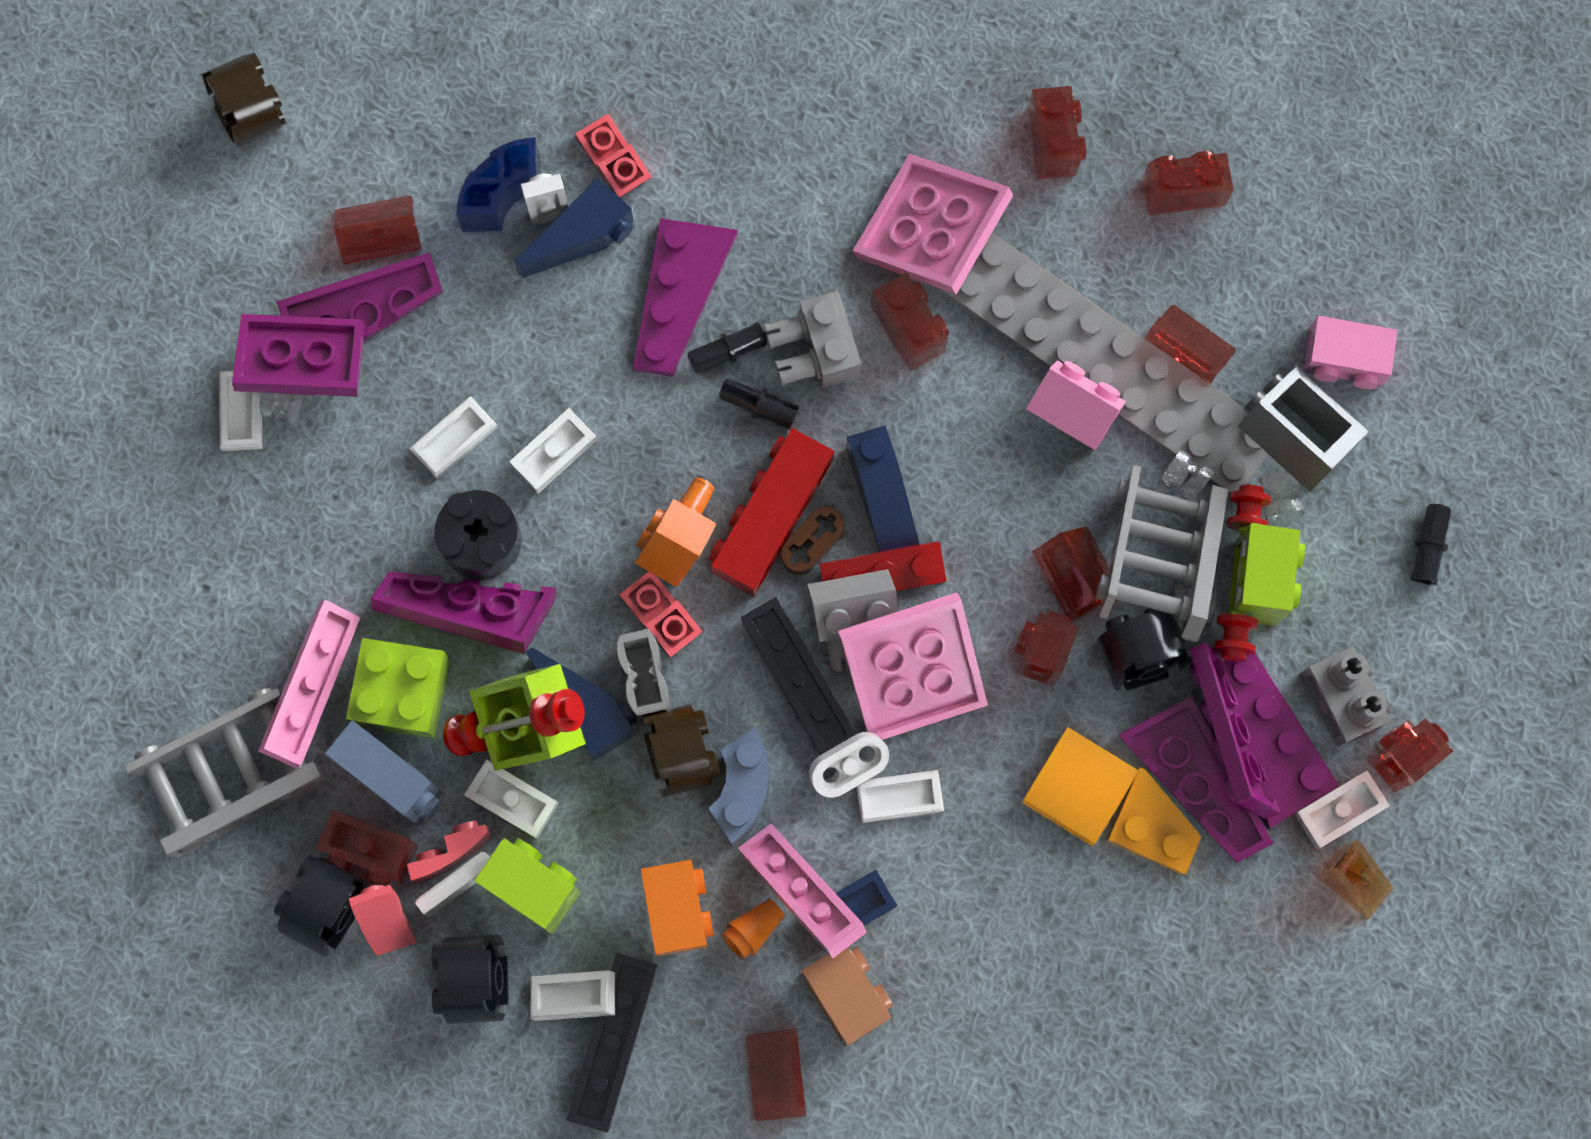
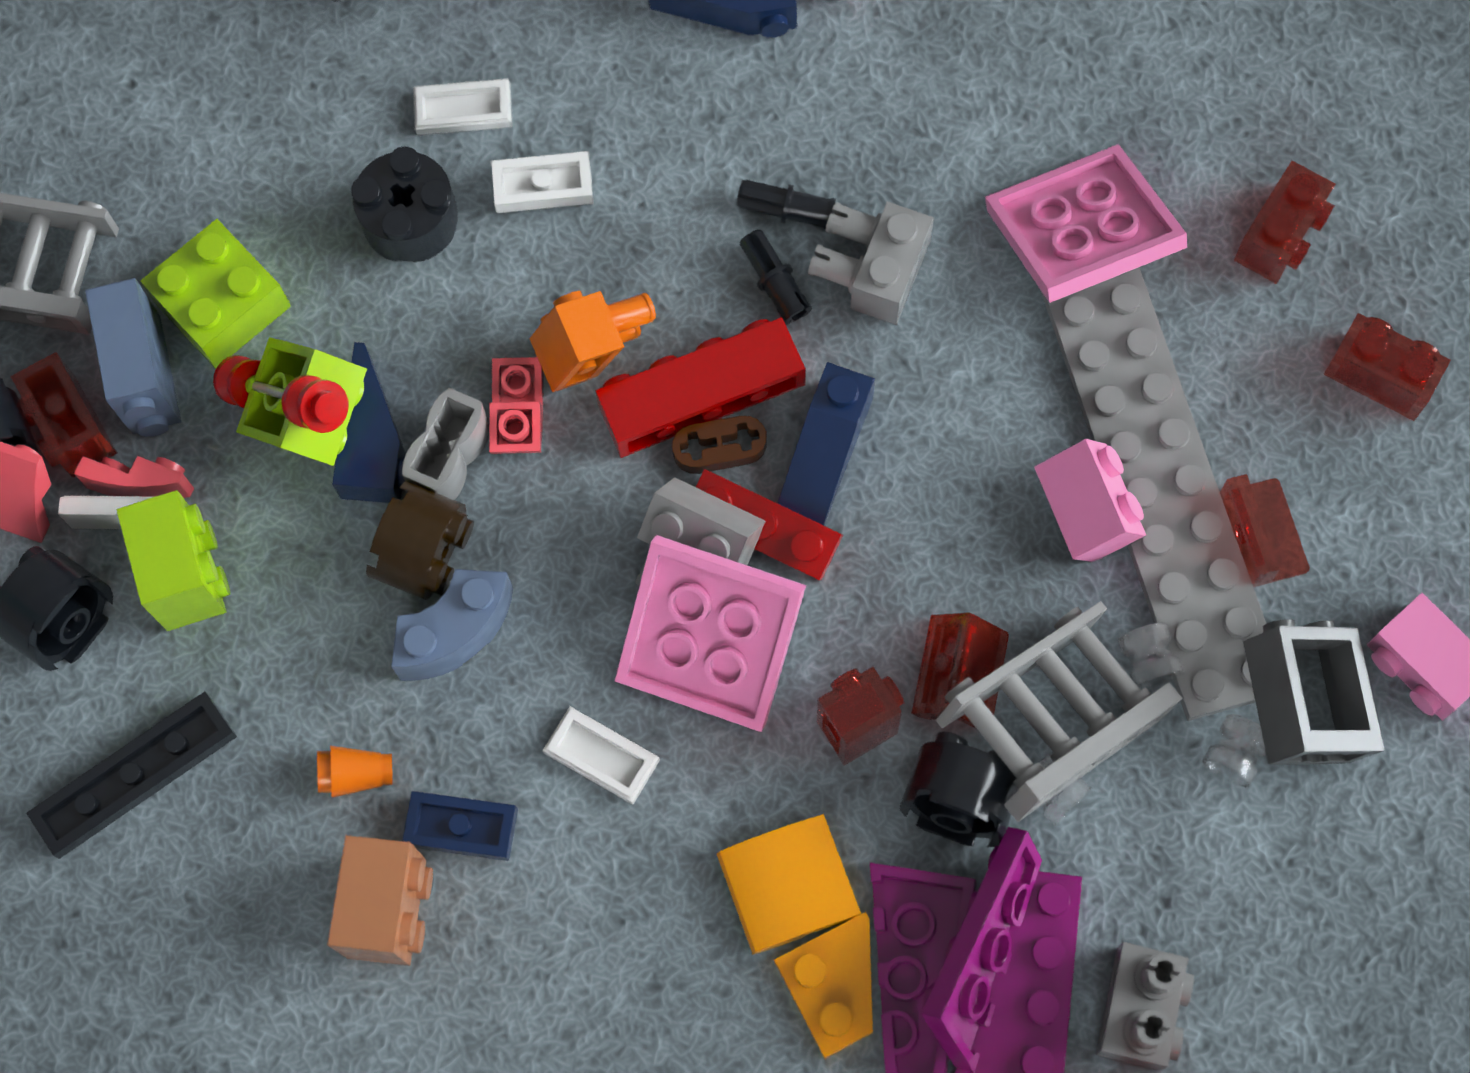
camera: 45 degrees right, 5 degrees down
(309, 684) = (139, 229): bright pink plate -> none
(486, 614) = (341, 269): magenta wing -> none
(511, 799) = (233, 475): white plate -> none
(572, 995) = (131, 700): white tile -> none
(675, 907) = (283, 684): orange brick -> none
(679, 285) = (796, 110): magenta wing -> none
(776, 1075) = (258, 932): clear red panel -> none
(797, 676) = (596, 566): black plate -> none
(802, 891) = (417, 765): bright pink plate -> none
(849, 767) = (574, 683): white plate -> none
(909, 322) = (985, 301): clear red brick -> none
(1262, 574) = (1143, 816): lime brick -> none
(1431, 544) = (1366, 921): black axle -> none

